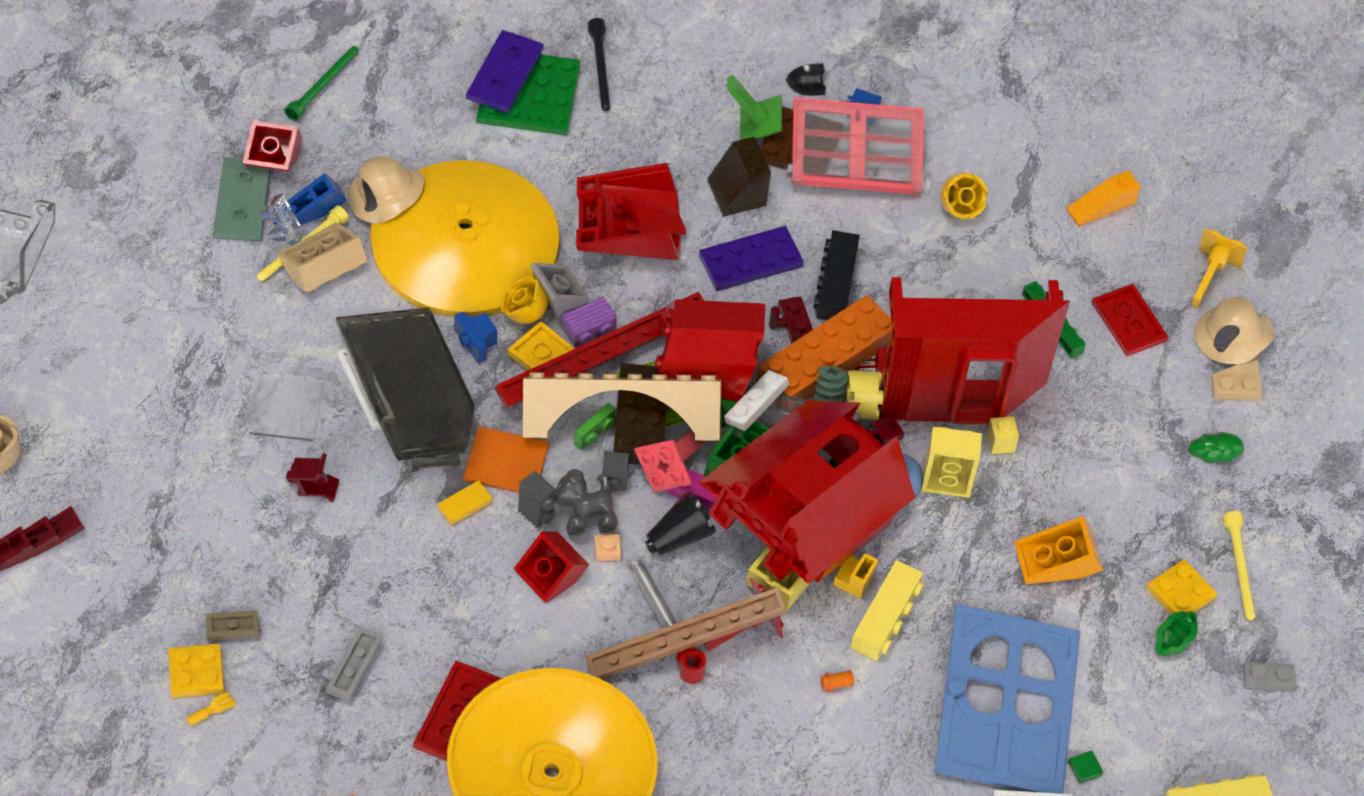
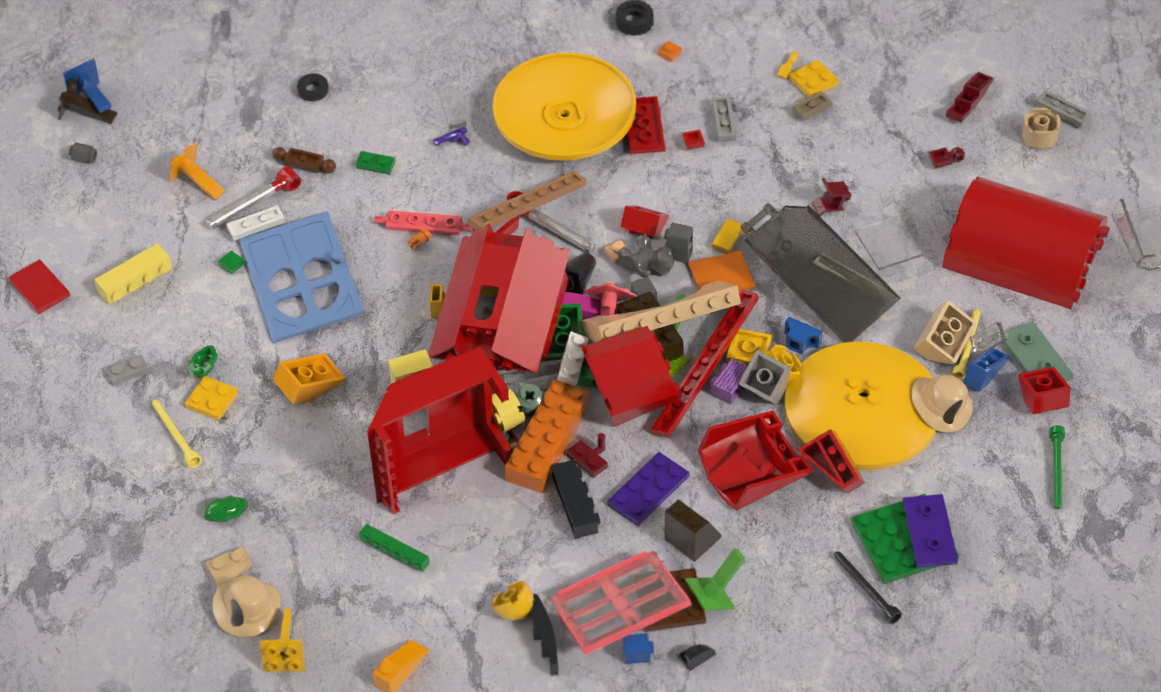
camera: 160 degrees right, 5 degrees down
(134, 311) = (1024, 242): none -> red cylinder
(138, 474) = (942, 157): none -> dark red plate
(414, 651) = (693, 139): none -> red plate
(549, 177) = (833, 459): none -> red wedge
(819, 703) = (415, 221): none -> coral plate
(887, 610) = (408, 290): light yellow brick -> none
(946, 162) = (544, 631): none -> black slope
(1129, 319) = (335, 579): red tile -> none

